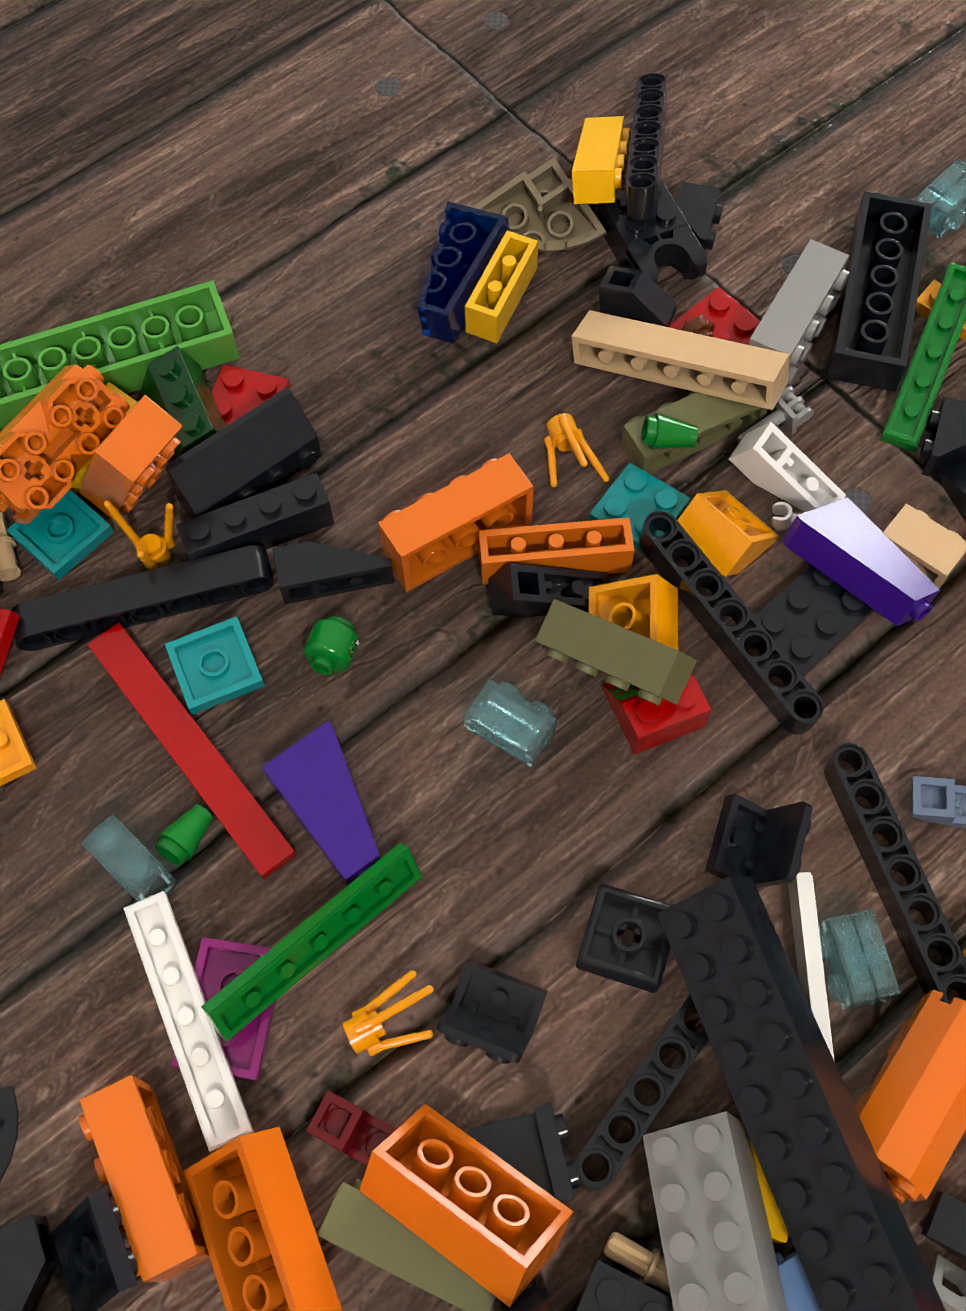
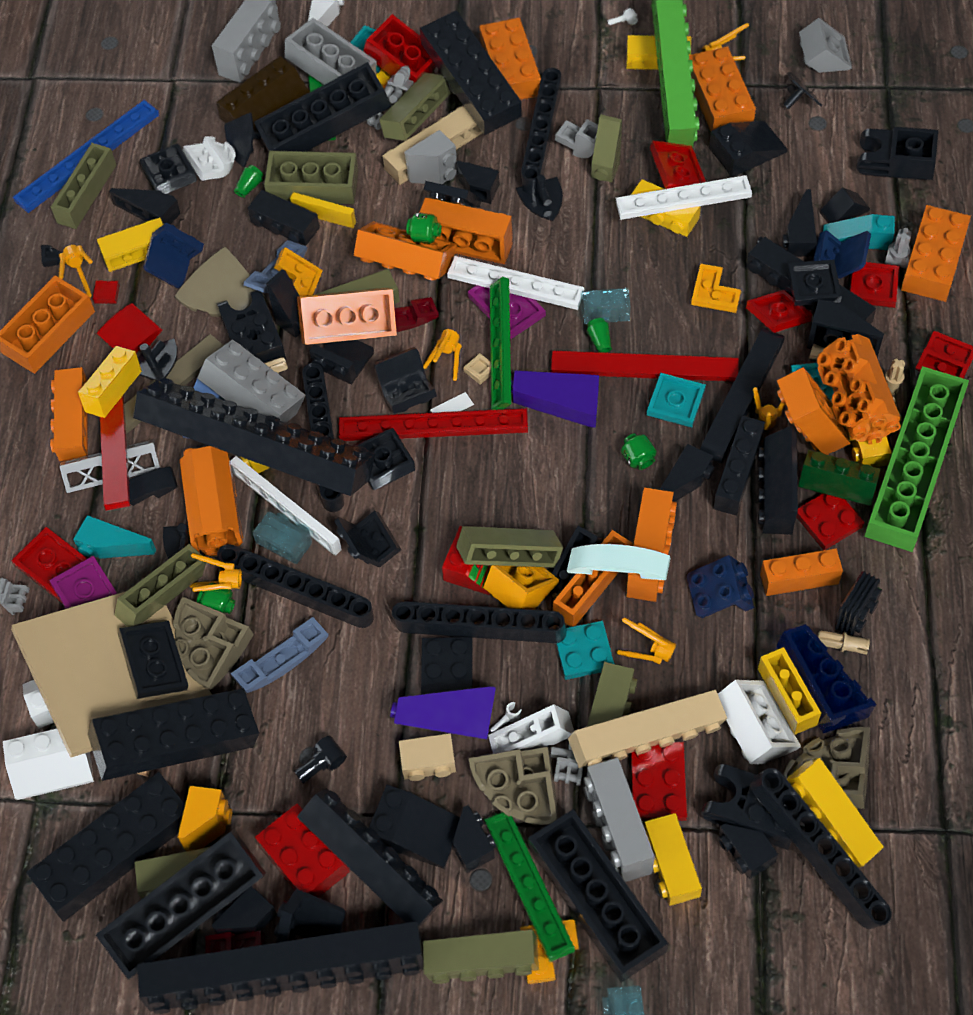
camera: 135 degrees right, 5 degrees down
(210, 1219) = (423, 228): none -> green head
(342, 289) = (858, 604): none -> black brick
(346, 372) = (801, 572): none -> orange brick
(369, 953) = (478, 368): none -> tan tile
(392, 289) = (844, 642): none -> tan axle
(438, 433) = (720, 587): none -> dark blue bracket
(459, 938) = (455, 404): none -> white sticker
(511, 721) = (525, 494): clear light blue brick -> none
(517, 939) = (435, 424): none -> red tile
(532, 507) = (619, 558): none -> light aqua slope
(559, 297) = (757, 721): none -> white slope
(634, 296) = (712, 752): black slope -> none
(666, 432) = (604, 676): green cone -> none
(699, 326) = (658, 761): reddish brown plate -> none
(726, 531) = (529, 673): light orange slope -> none
(771, 264) = (672, 860): none -> yellow brick
(852, 441) = (519, 783): none -> dark tan brick

